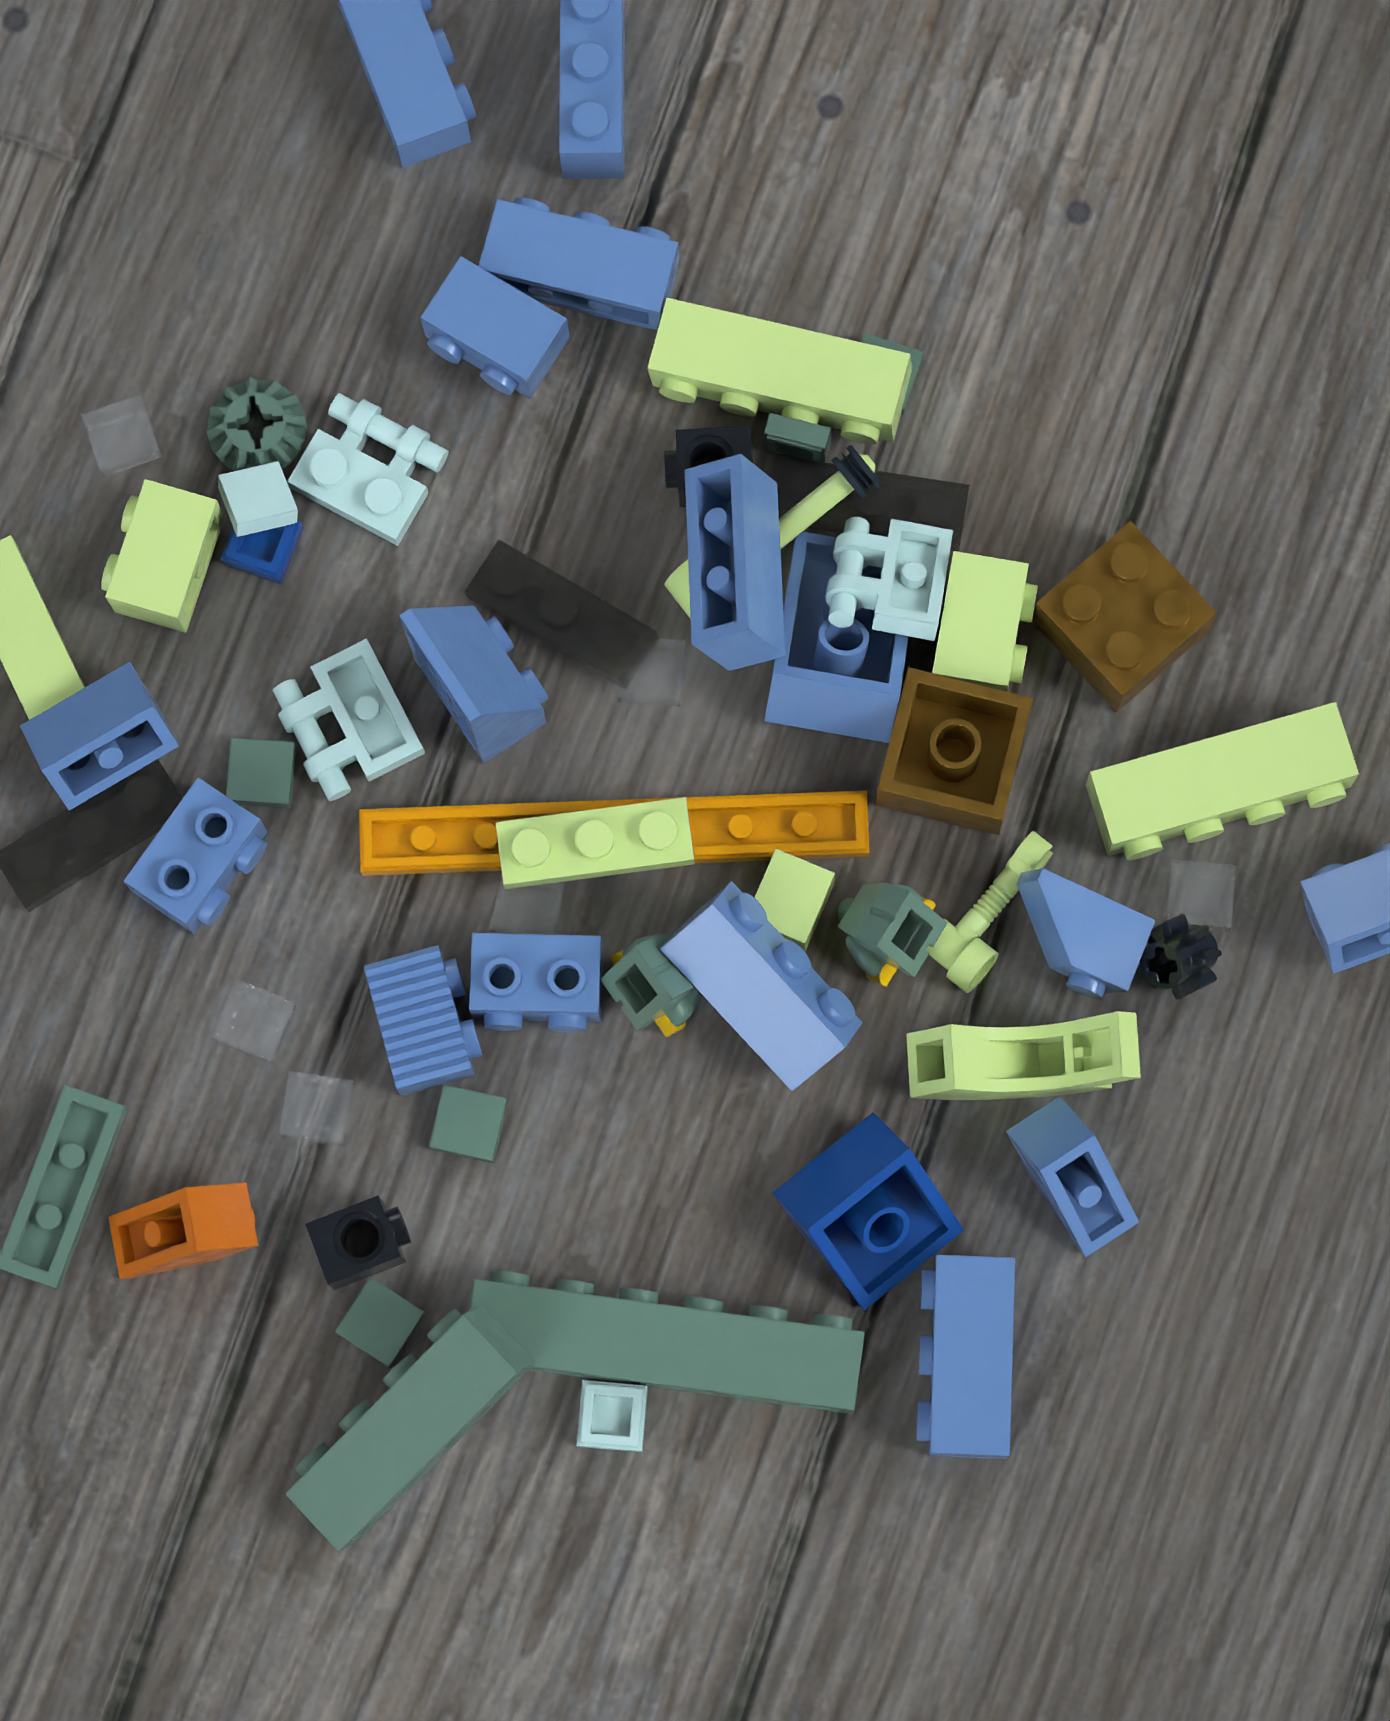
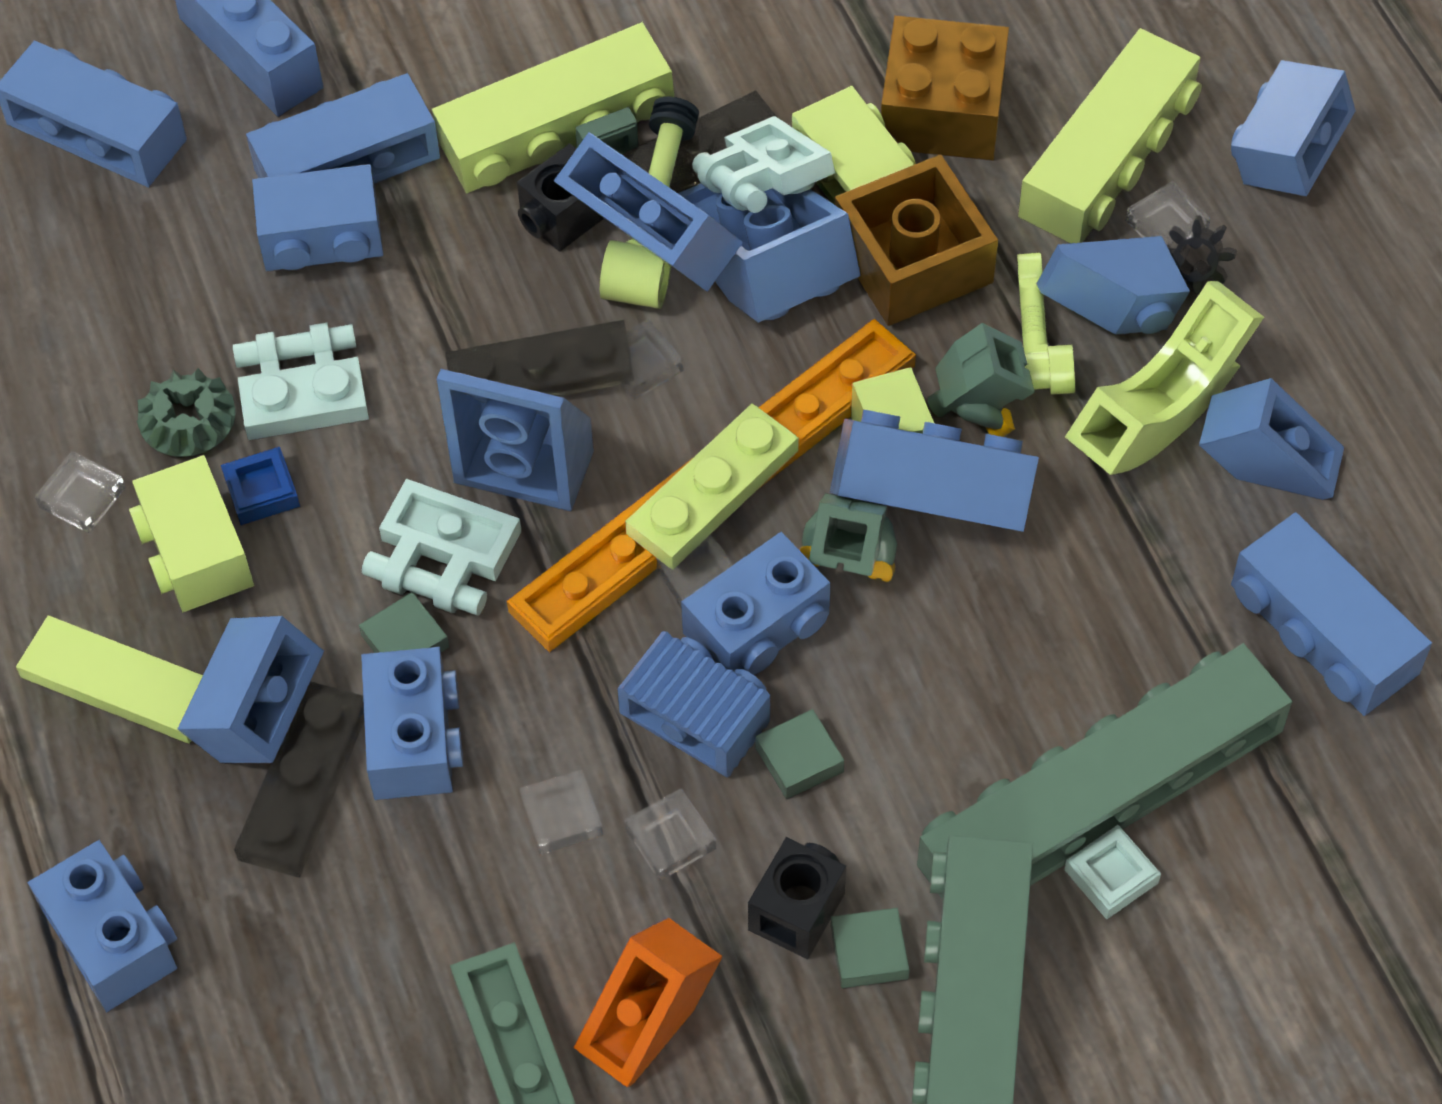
camera: 45 degrees left, 20 degrees down
(257, 498) = (234, 447): light aqua tile -> none
(868, 1210) = (1154, 573): blue slope -> none

